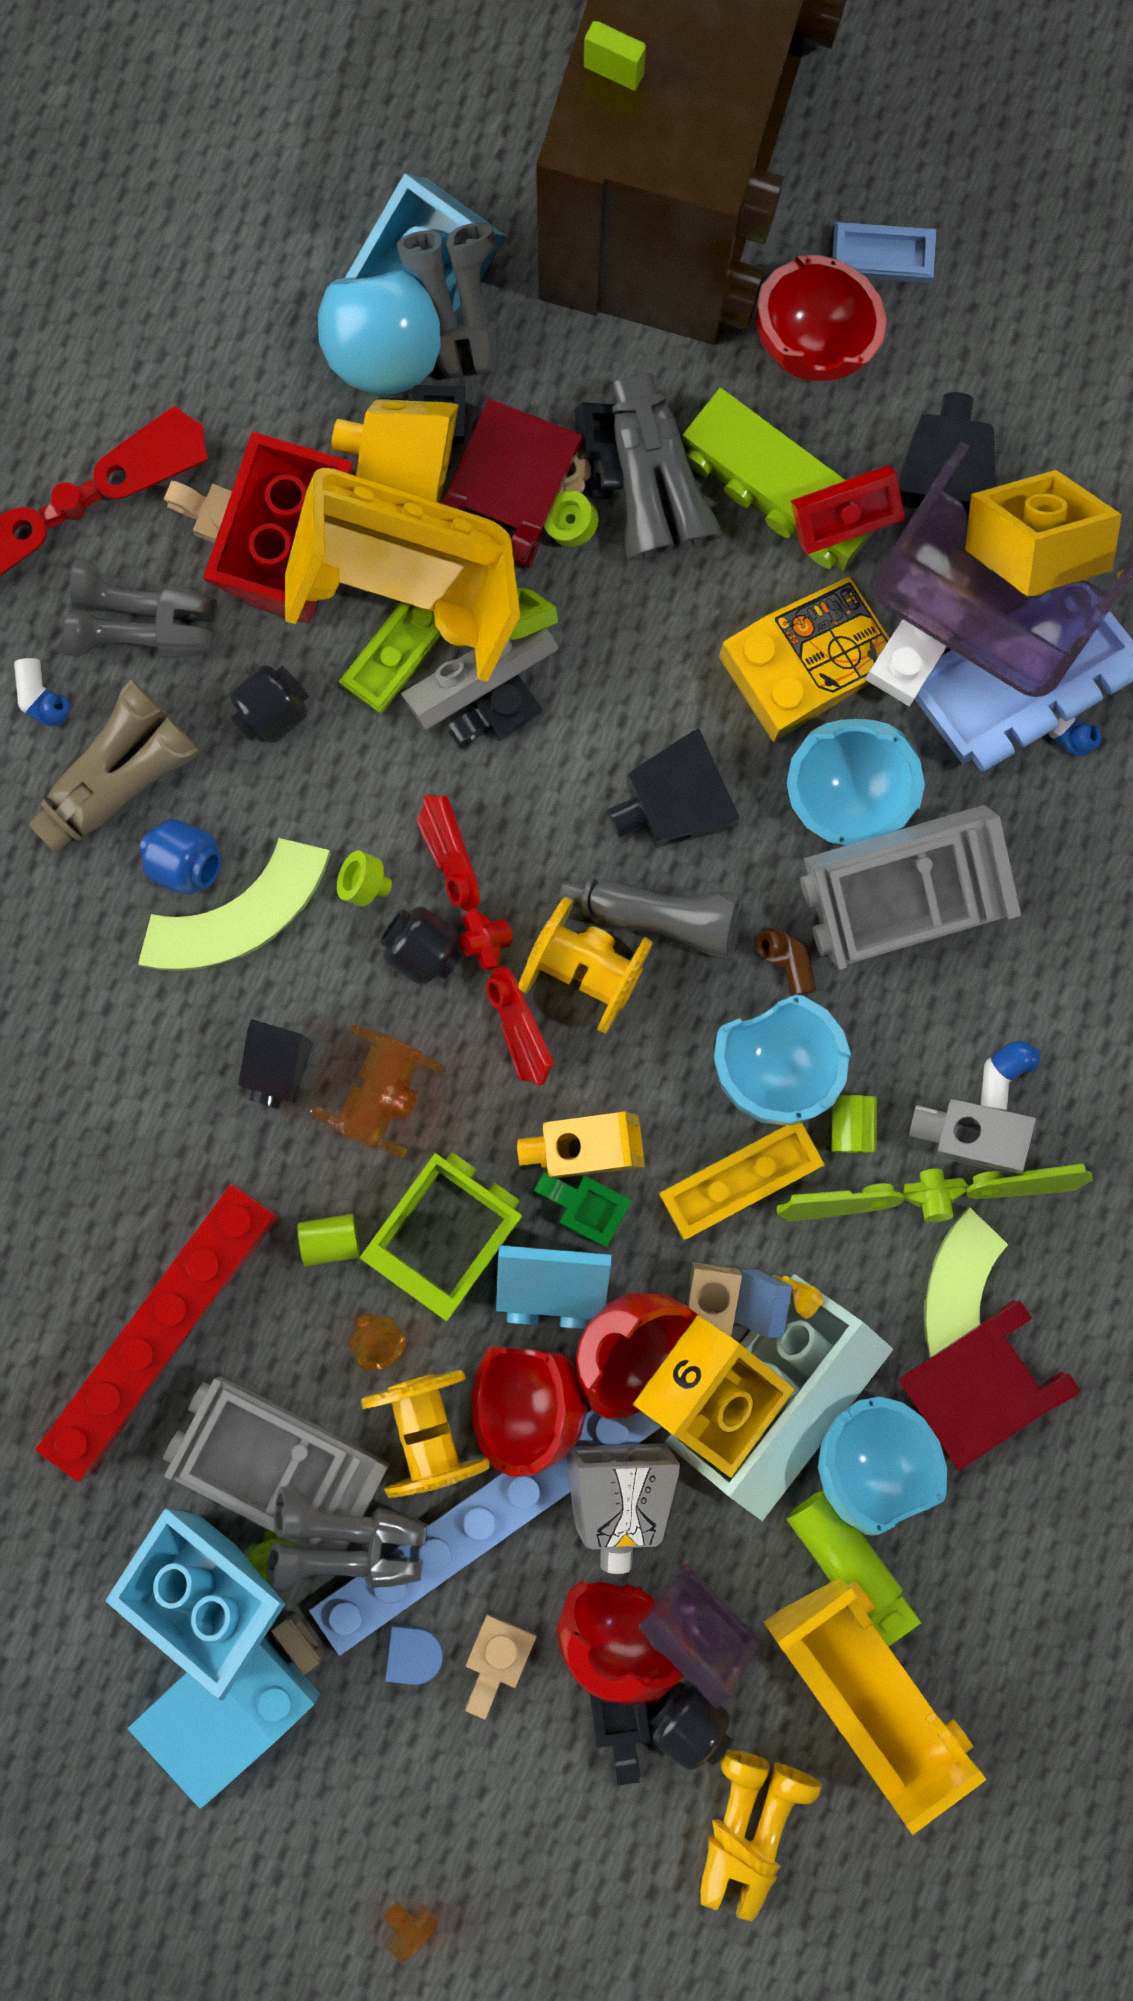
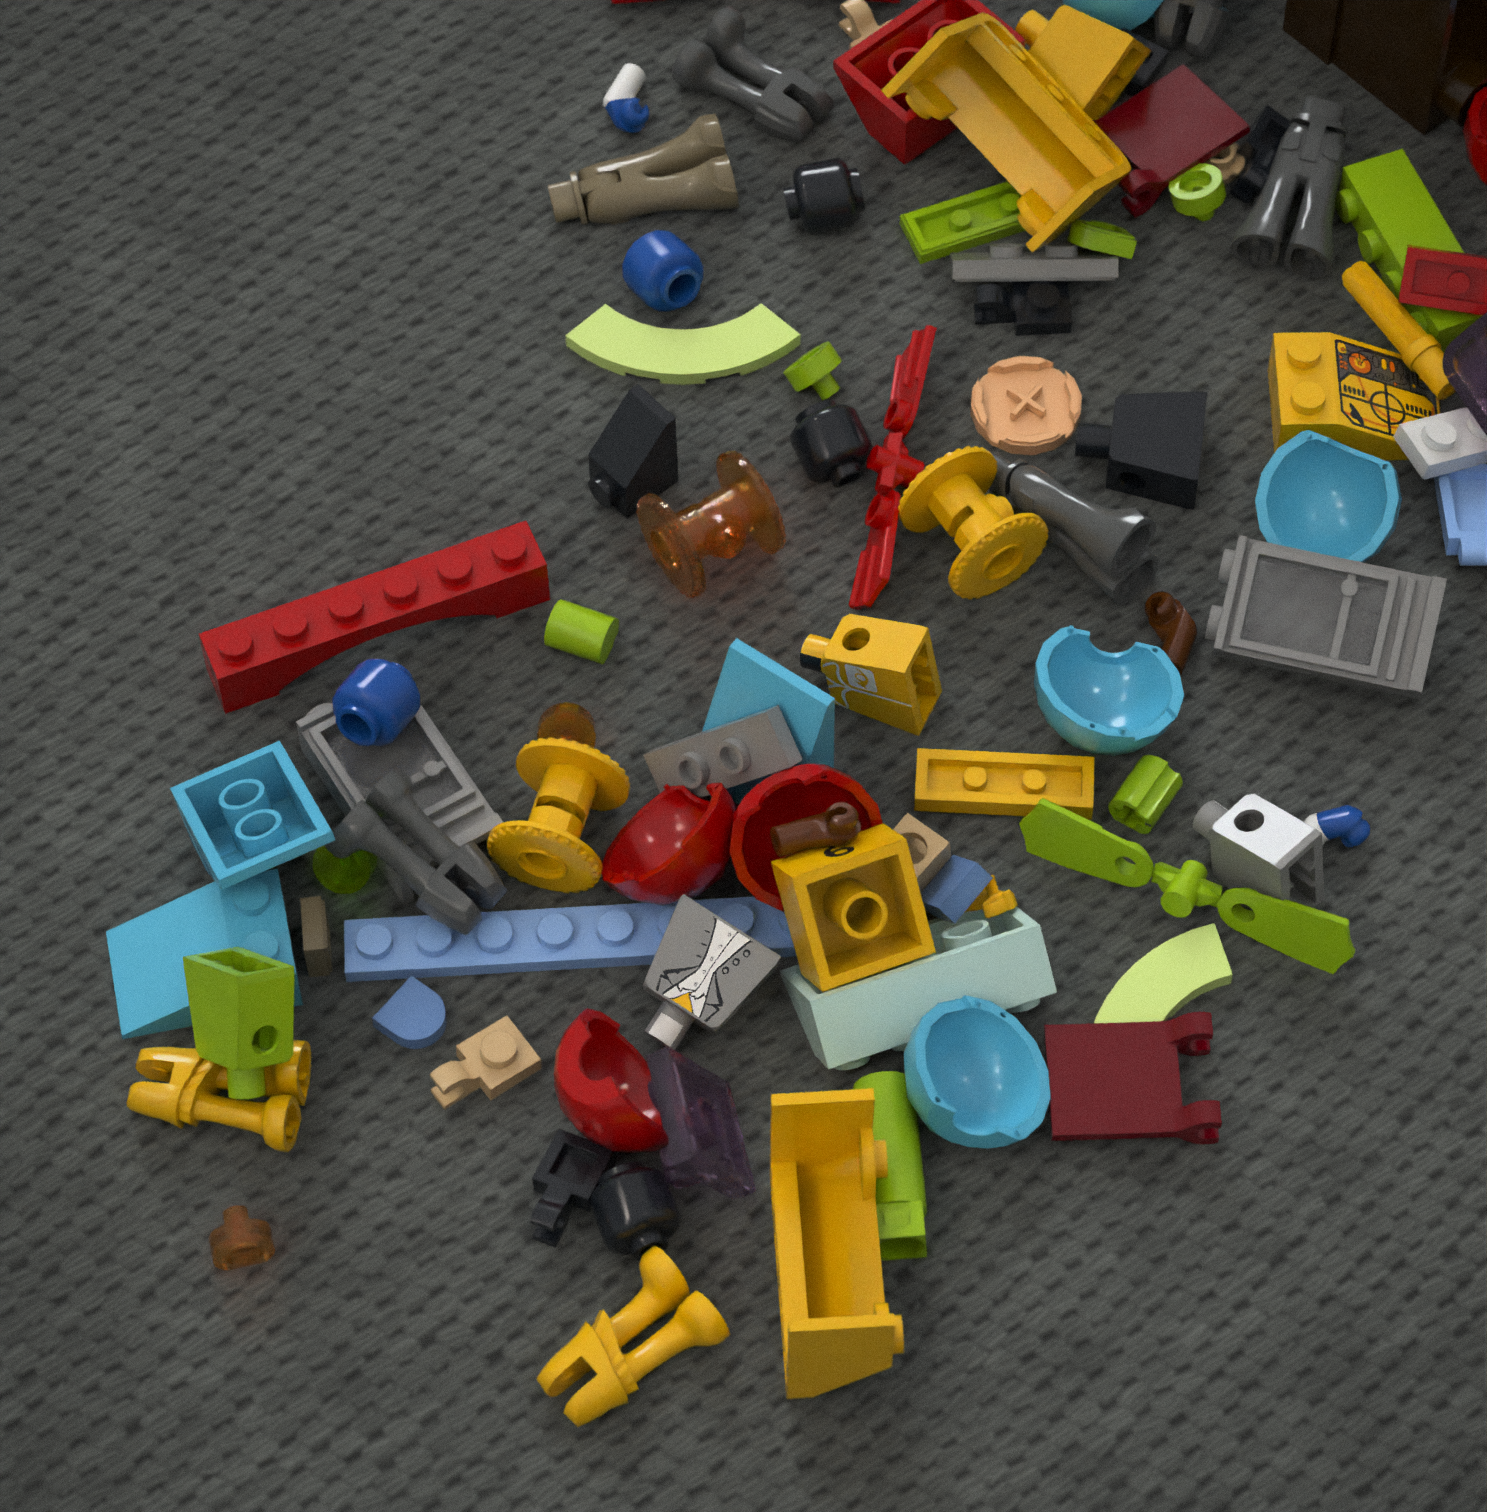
camera: 35 degrees right, 25 degrees down
(224, 1435) = (376, 702): none -> blue head
(286, 1811) = (195, 1090): none -> yellow piece
(323, 1787) = (241, 1014): none -> lime torso
(410, 1279) = (660, 642): lime window -> none
(530, 1316) = (726, 753): none -> light grey plate
(549, 808) = (1026, 405): none -> light nougat tile
(589, 1208) = (855, 733): green plate -> none
(658, 1359) = (832, 828): none -> reddish brown arm
(840, 581) = (1418, 349): none -> yellow axle

